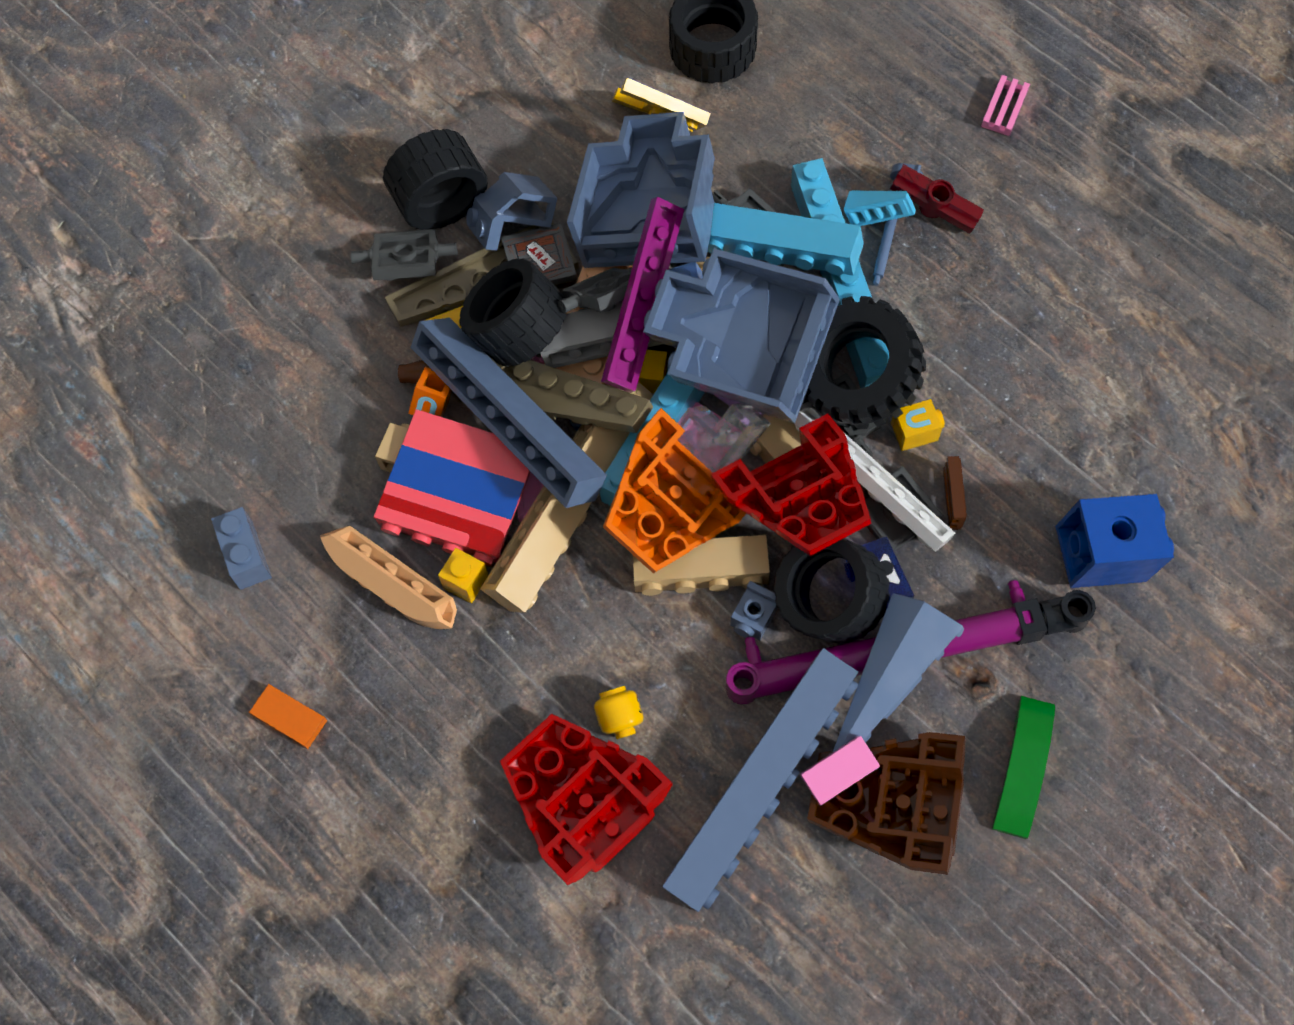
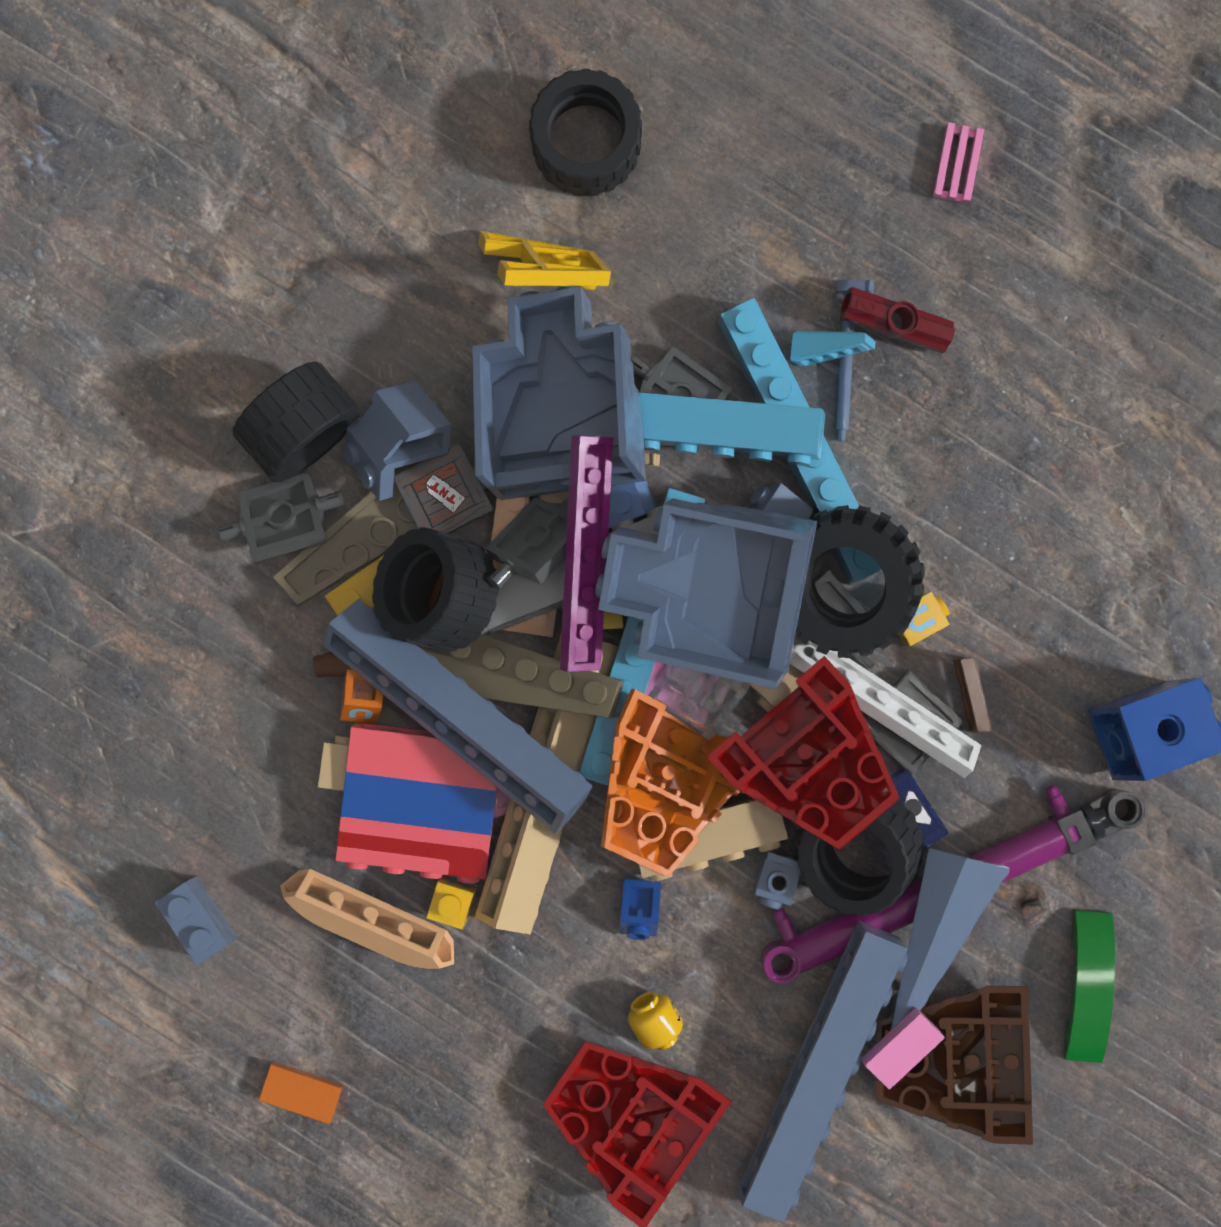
camera: 15 degrees left, 20 degrees up
(626, 616) = (640, 909): none -> blue bracket

